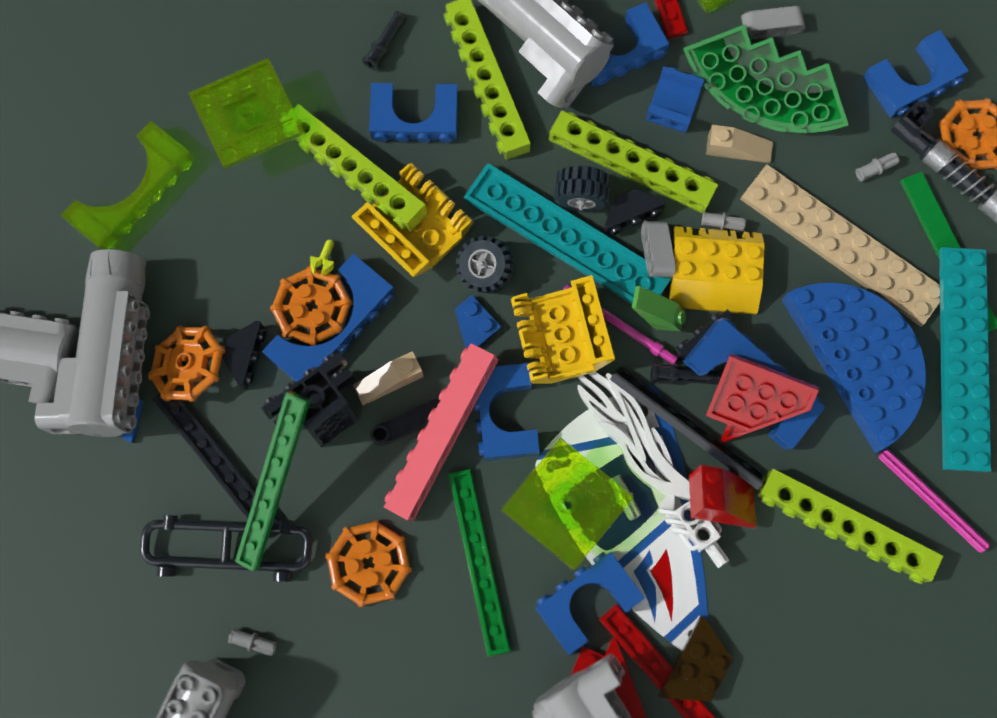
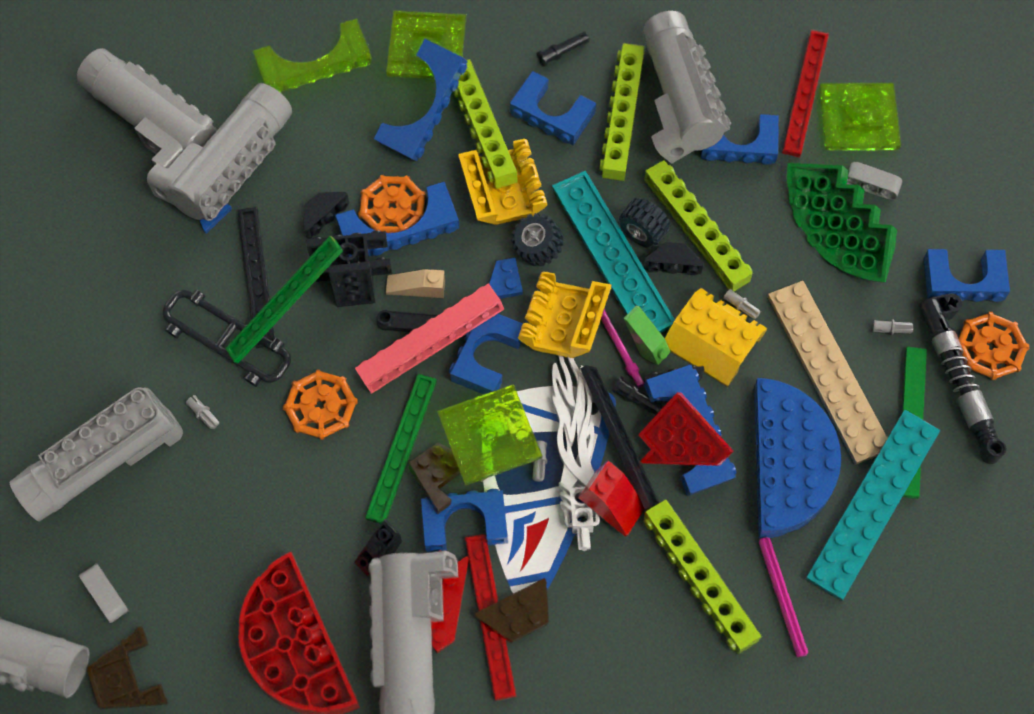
camera: 30 degrees right, 10 degrees down
(193, 371) = (285, 193): orange plate -> none
(287, 131) = (412, 138): none -> blue arch
(323, 259) = (420, 177): neon yellow bar -> none
(523, 685) = (383, 542): none -> black slope
(528, 571) = (433, 471): none -> dark brown wing
(658, 249) = (676, 296): light grey beam -> none
(674, 99) = (759, 198): blue panel -> none
(738, 144) = (789, 255): tan slope -> none

